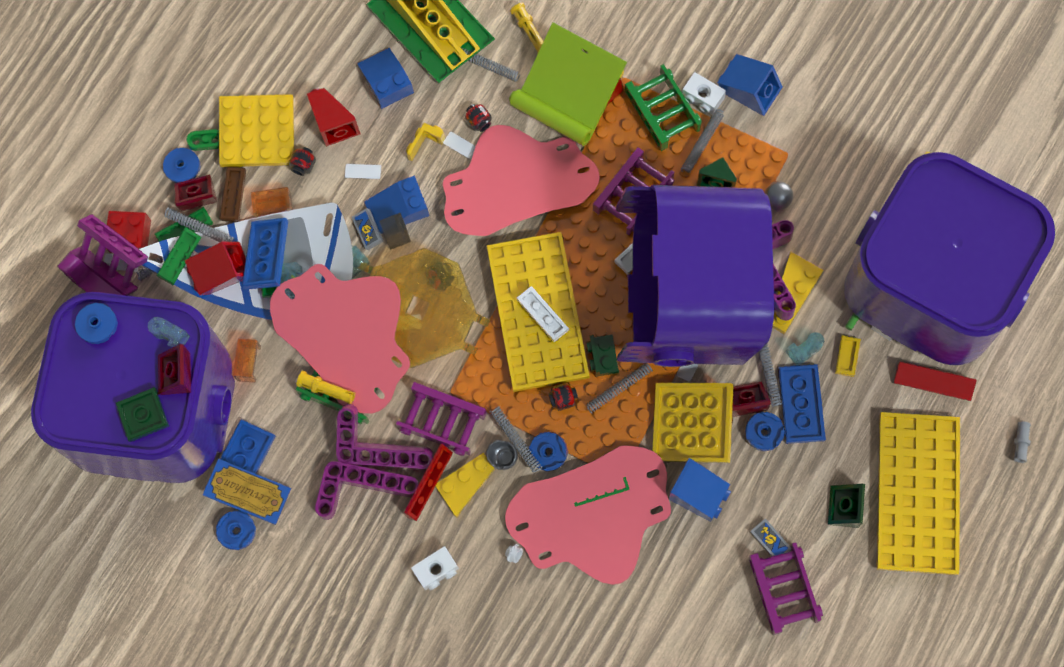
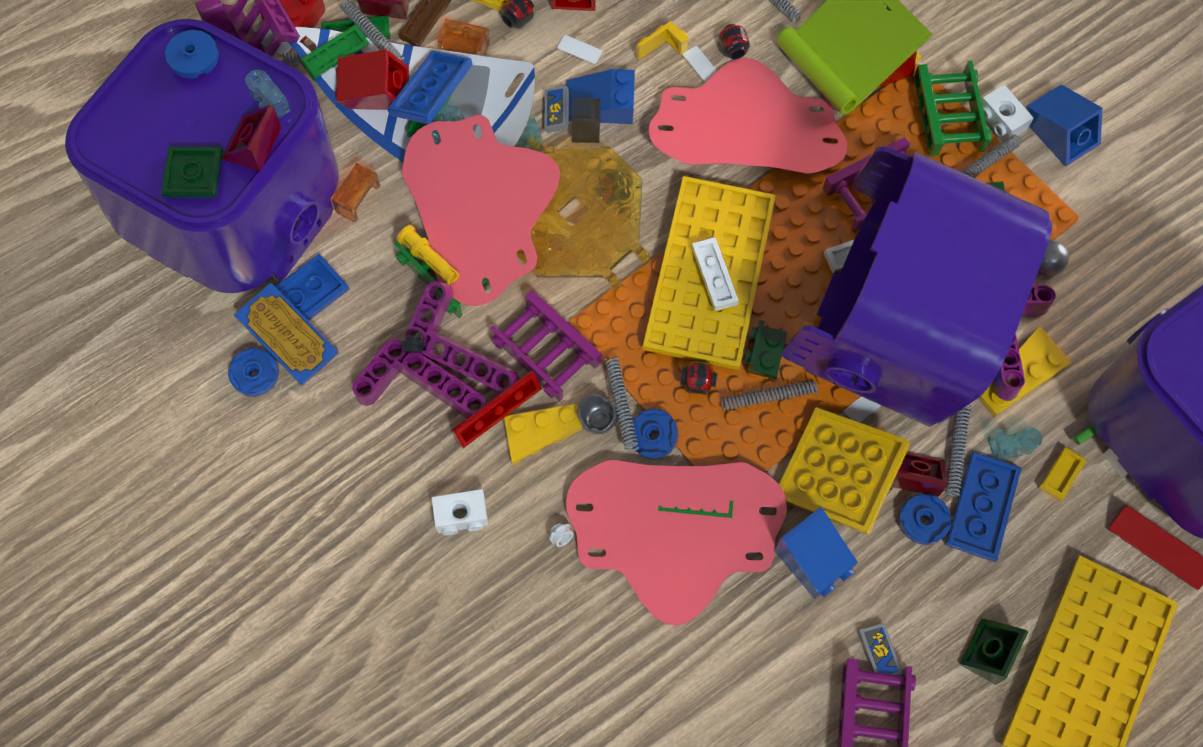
camera: 15 degrees right, 5 degrees down
(346, 461) = (413, 344): none -> black plate

